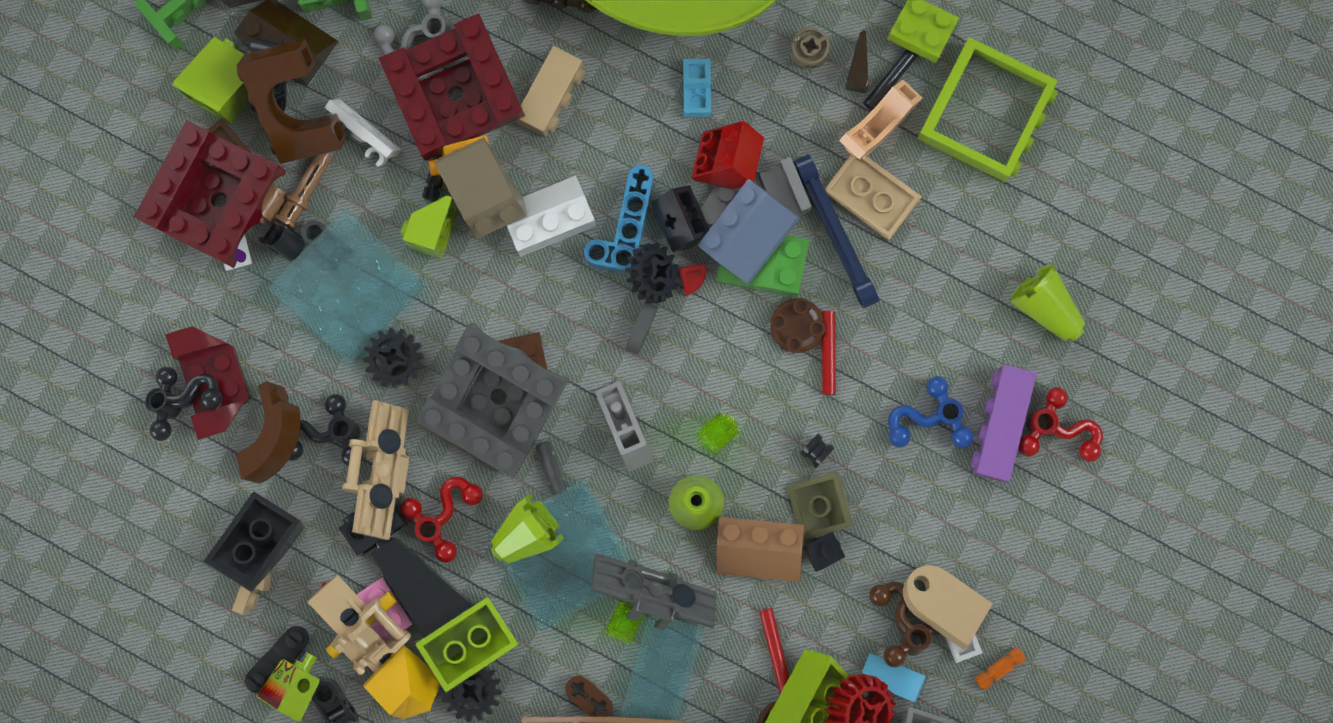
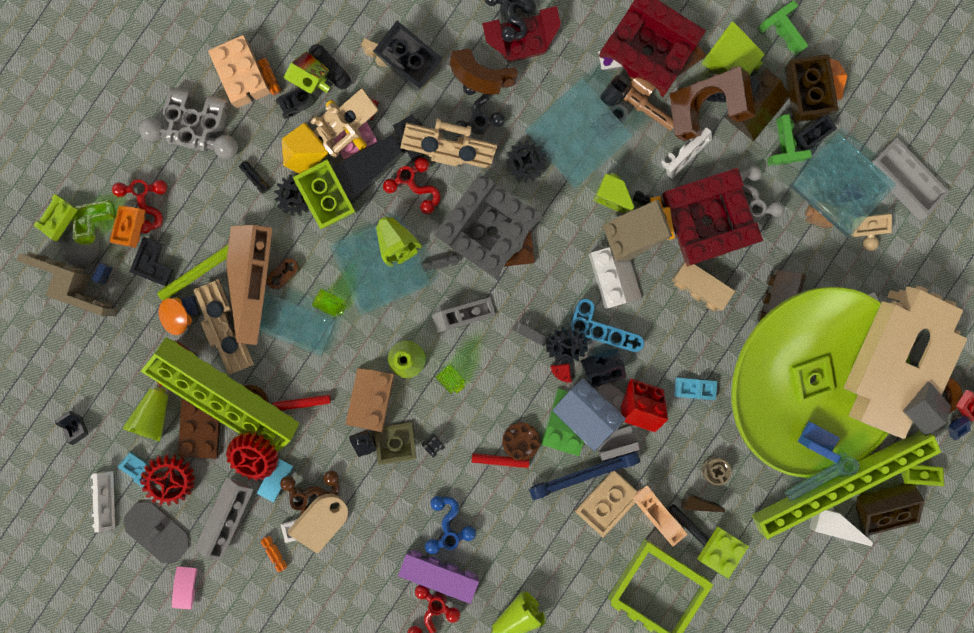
camera: 85 degrees right, 5 degrees up
(636, 586) = (341, 339): dark grey piece -> none

